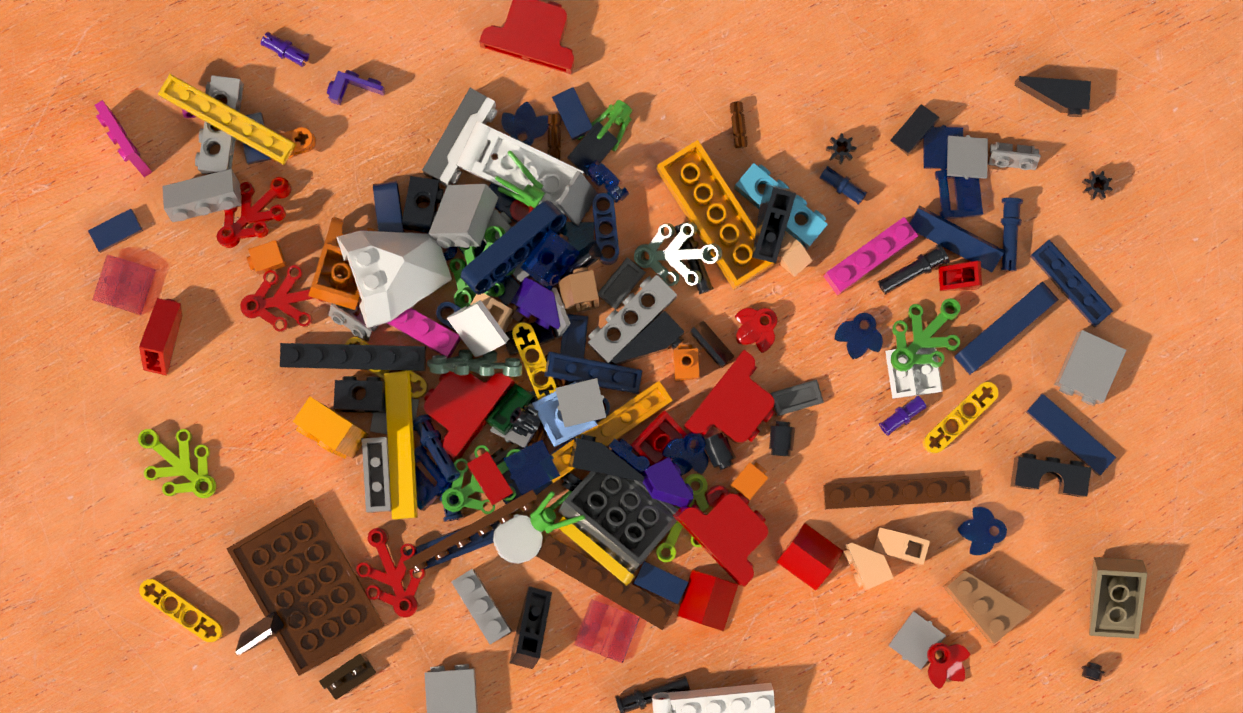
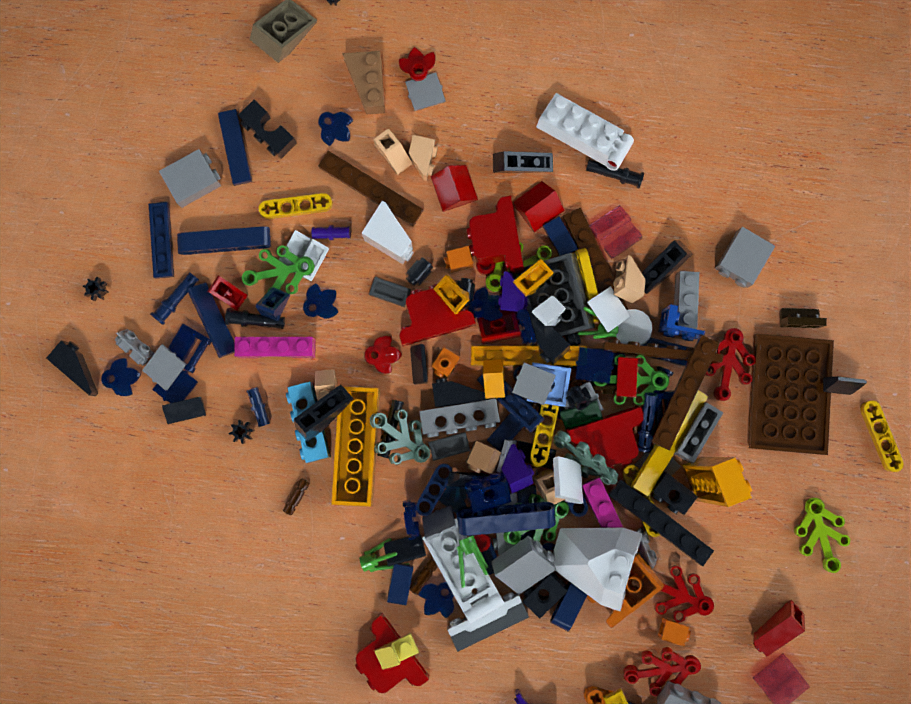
camera: 145 degrees left, 0 degrees up
(420, 503) = (685, 392): none -> reddish brown plate
(486, 574) = (667, 325): none -> blue bracket
(529, 47) = (396, 651): none -> light yellow slope
(556, 585) = (629, 281): none -> light nougat slope
(557, 537) = (609, 309): none -> white sticker
(617, 484) = (549, 311): none -> white slope
(625, 380) = (493, 378): none -> light orange slope
(658, 511) = (533, 278): none -> light orange slope
(729, 434) = (452, 294): none -> light orange slope
(757, 634) = (522, 162): none -> black slope
(840, 452) = (388, 235): none -> white slope
(905, 298) = (273, 303): none -> dark blue slope
(1001, 119) = (123, 377): none -> clear blue plate

